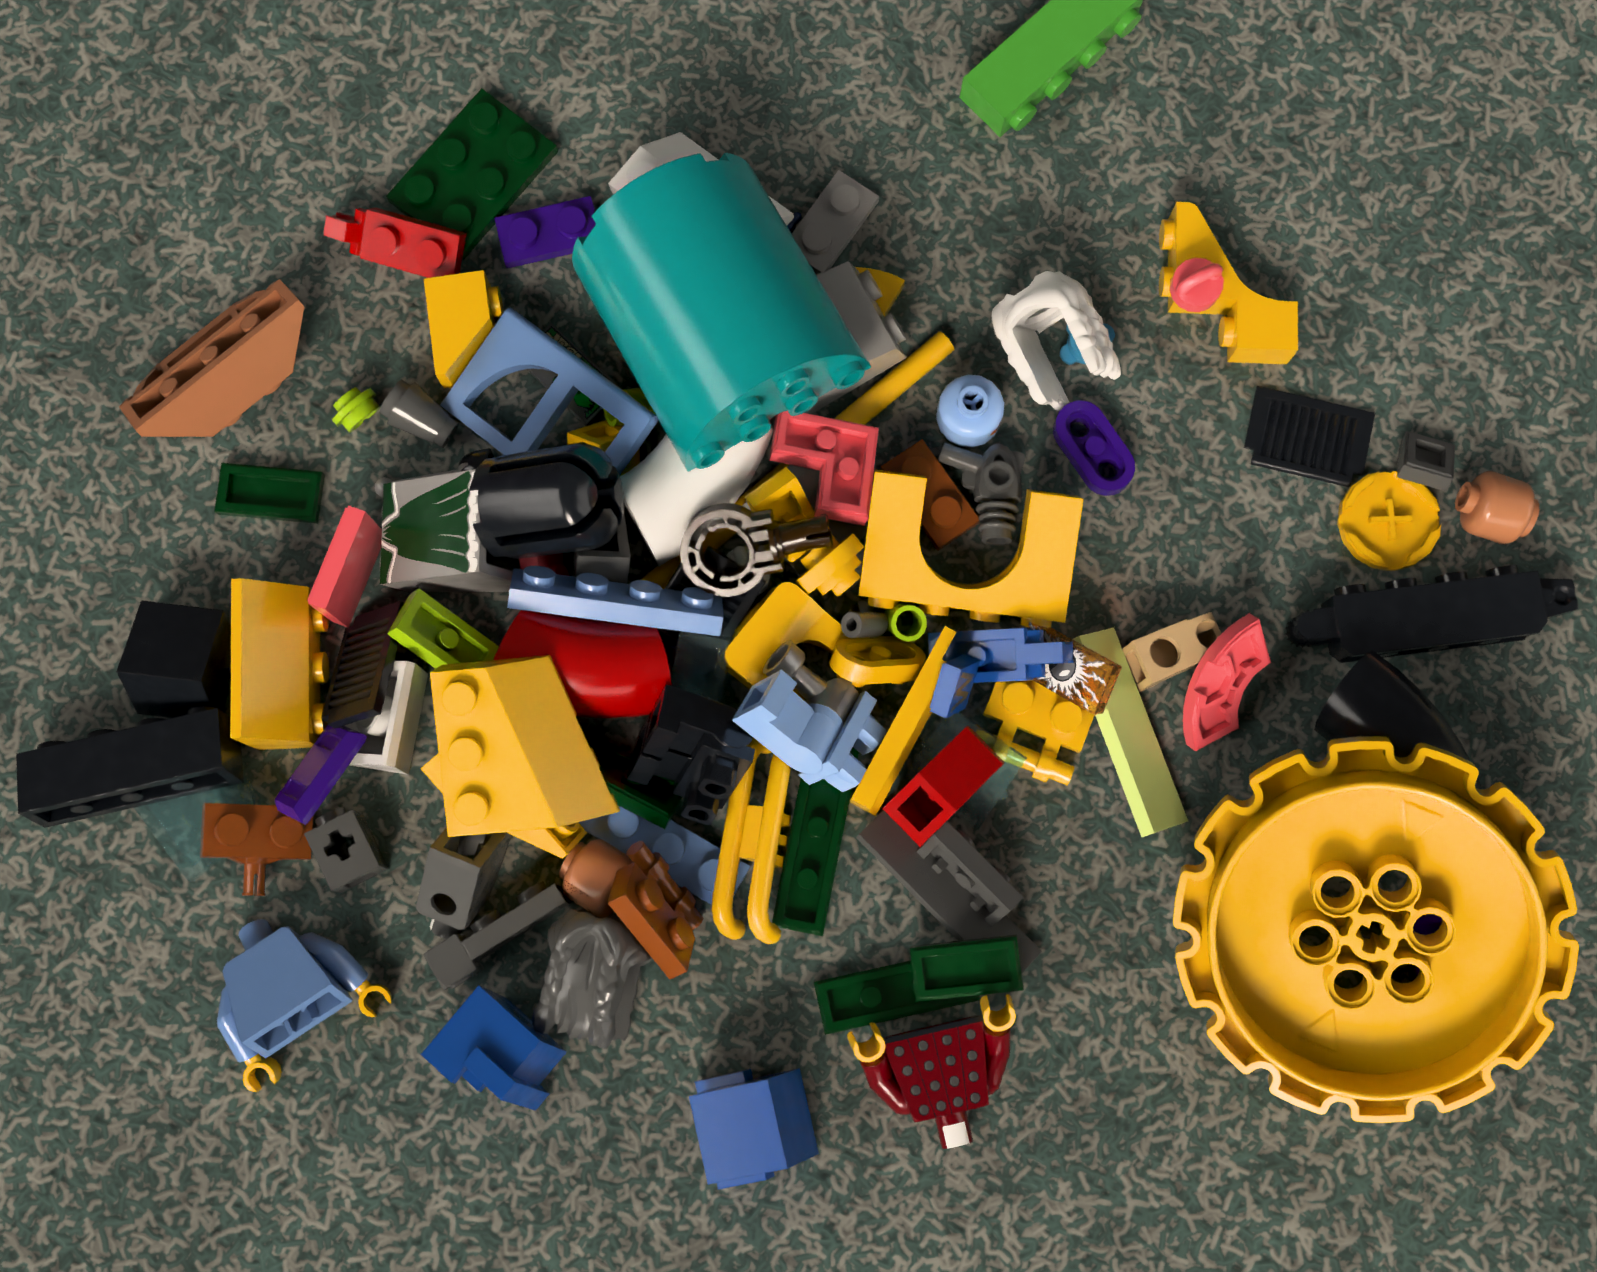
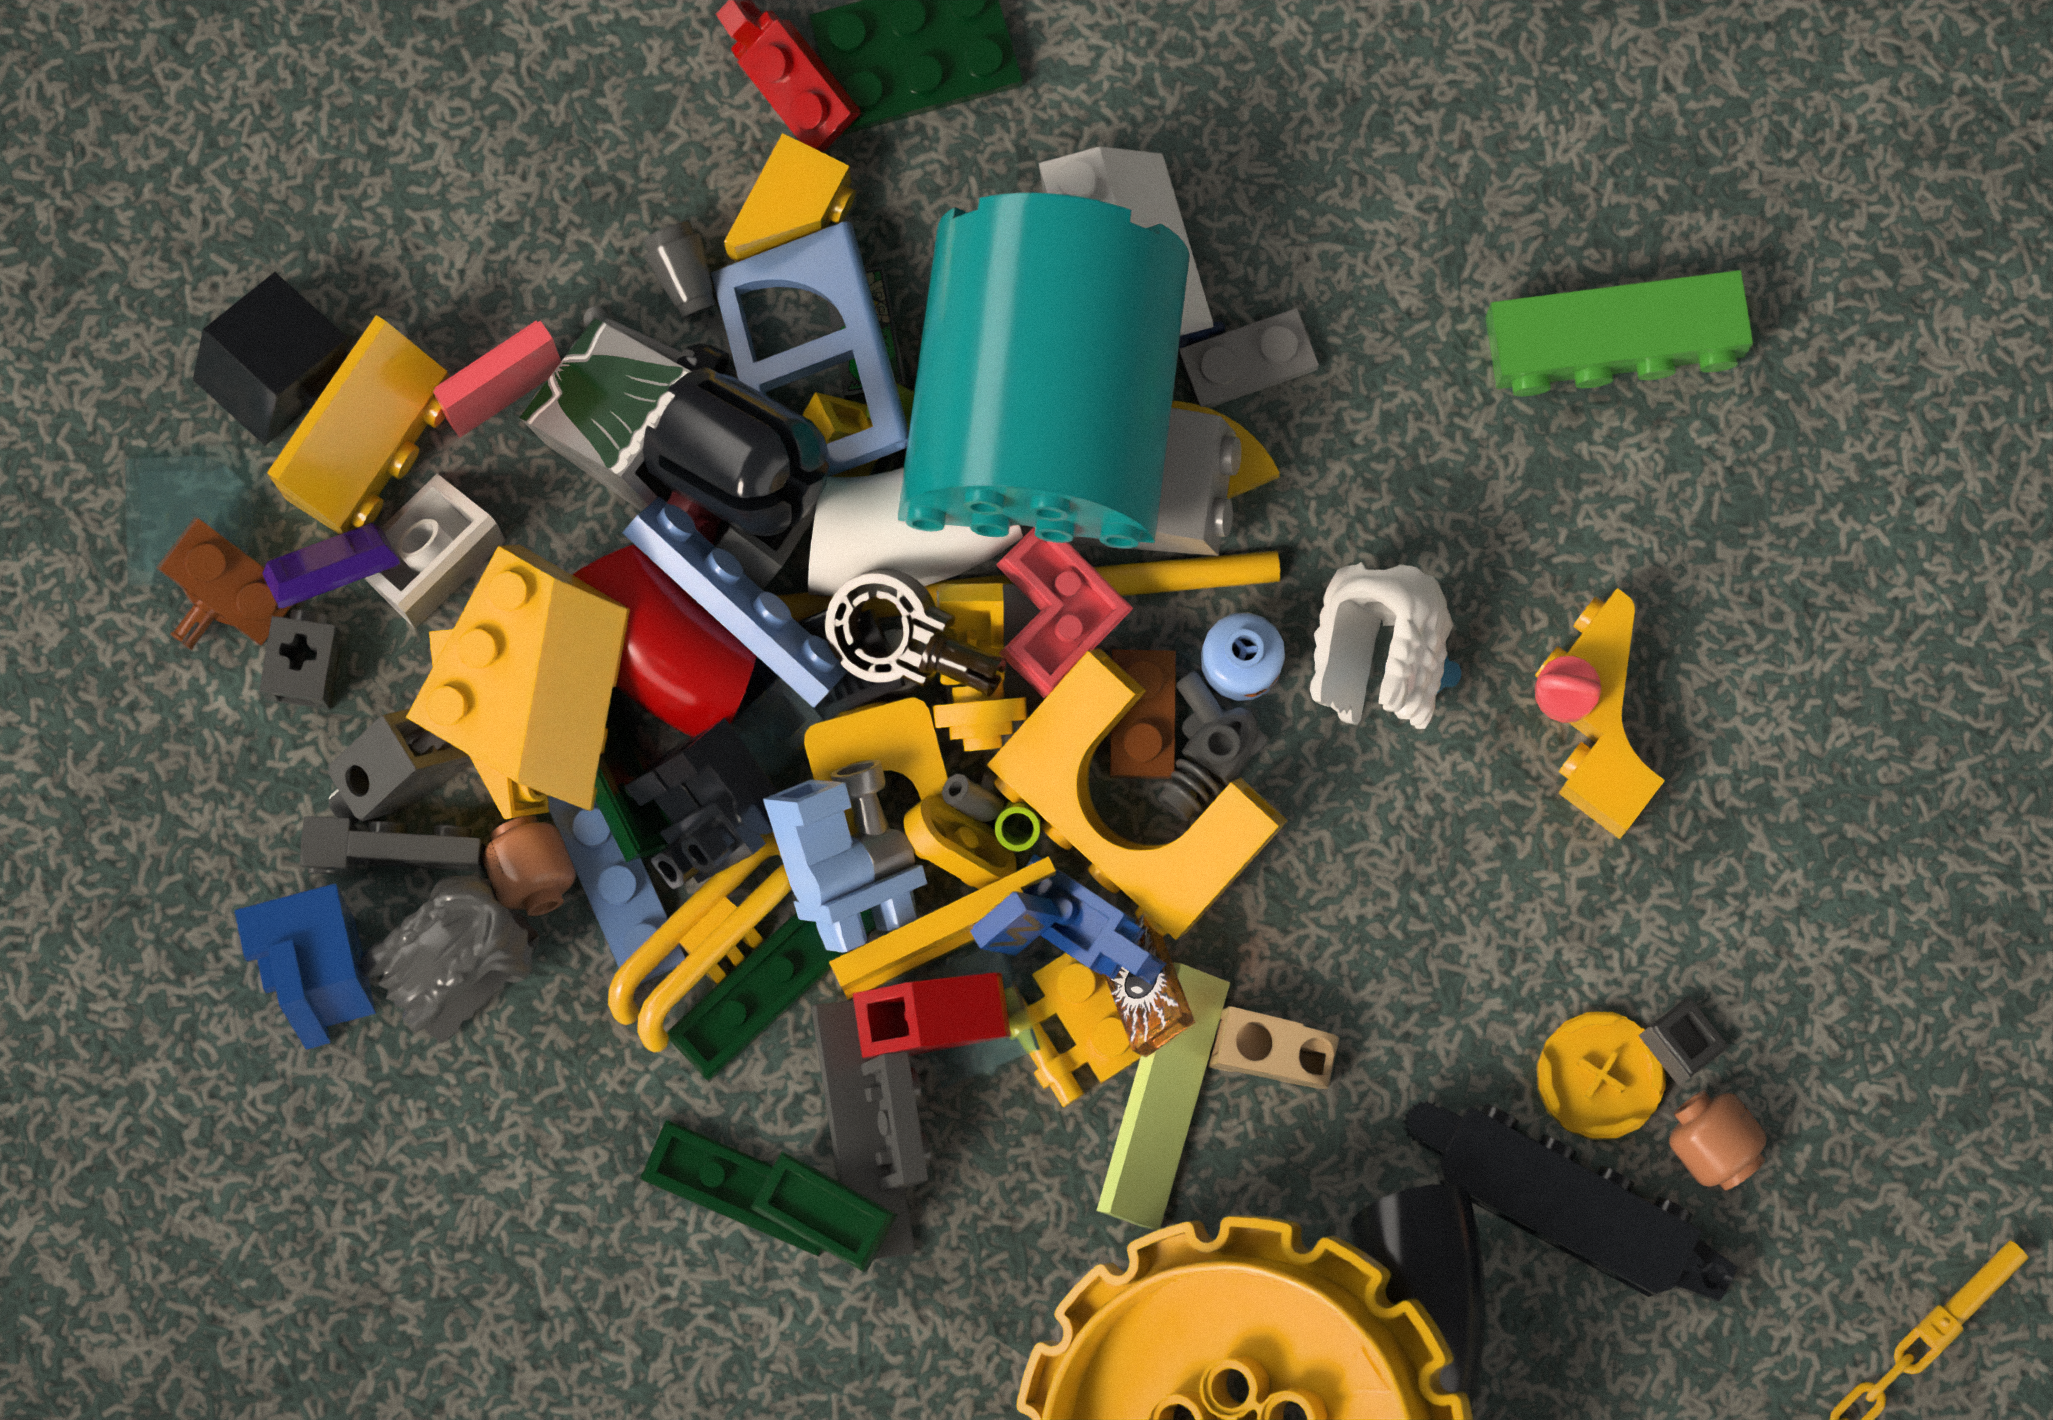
camera: 35 degrees right, 0 degrees up
(128, 767) = (149, 429): black brick -> none
(220, 368) = (515, 82): nougat wedge -> none
(269, 493) = (477, 244): dark green tile -> none
(282, 991) = (145, 756): medium blue torso -> none
(354, 408) = (622, 217): lime plate -> none
(362, 668) = (447, 489): black window -> none
(438, 633) = (542, 510): lime plate -> none
(544, 231) = (947, 164): dark purple plate -> none
(656, 909) = (559, 933): dark orange plate -> none
(751, 1126) = (503, 1212): blue plate -> none
(940, 1068) = (726, 1290): dark red torso -> none
(1097, 447) = (1346, 785): dark purple plate -> none
(1220, 680) = (1292, 1112): coral tile -> none
(1308, 436) = (1583, 930): black window -> none

